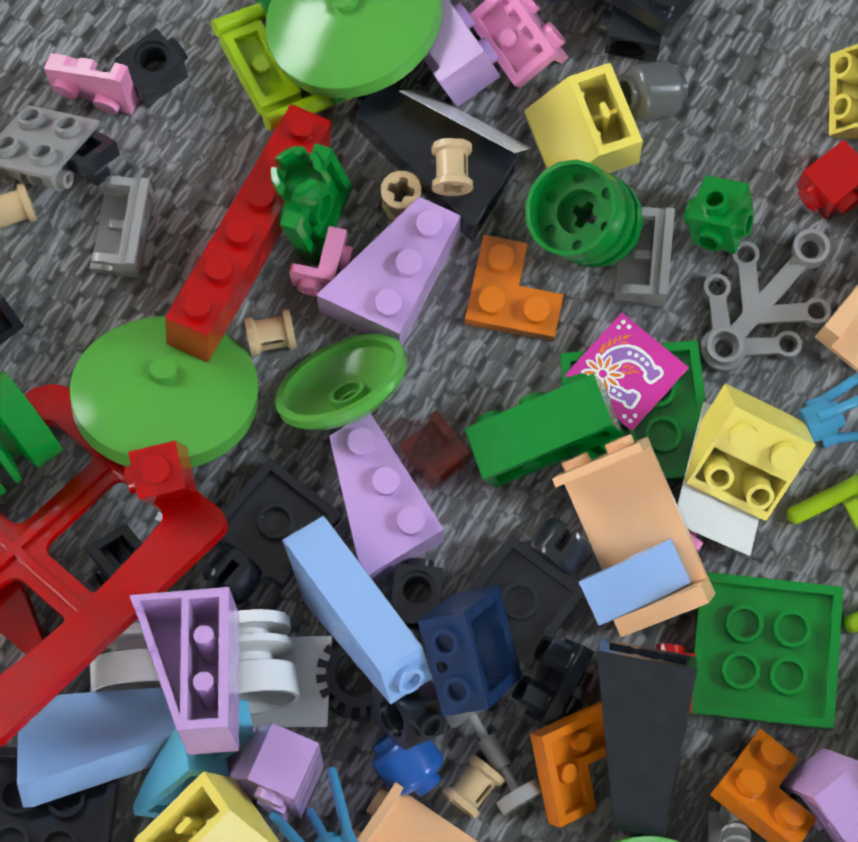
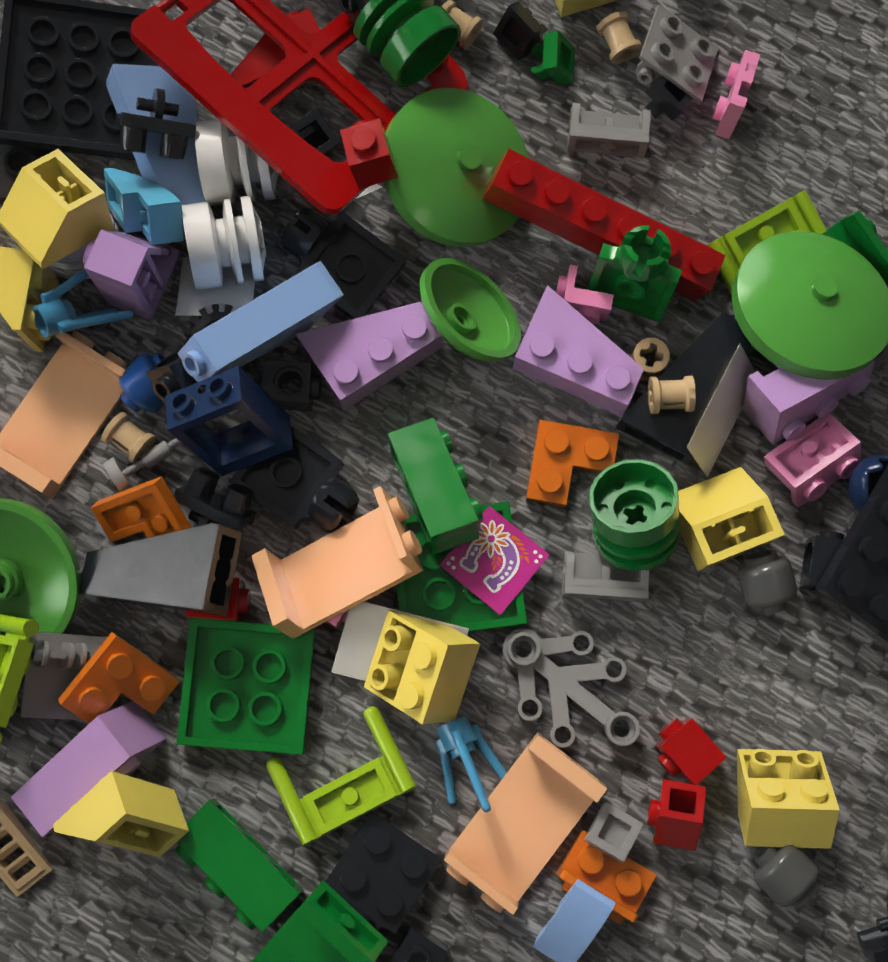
camera: 85 degrees right, 5 degrees up
(30, 278) = (557, 58): none -> green tile
(111, 712) = (135, 127): none -> black hips
(154, 84) = (761, 129): black brick -> none
(197, 663) = (194, 183): lavender wedge -> none
(270, 333) = (518, 256): tan bush -> none
(436, 451) = (417, 398): clear red panel -> none
(635, 582) = (298, 567): light blue slope -> none
(720, 214) = (646, 642): green brick -> none

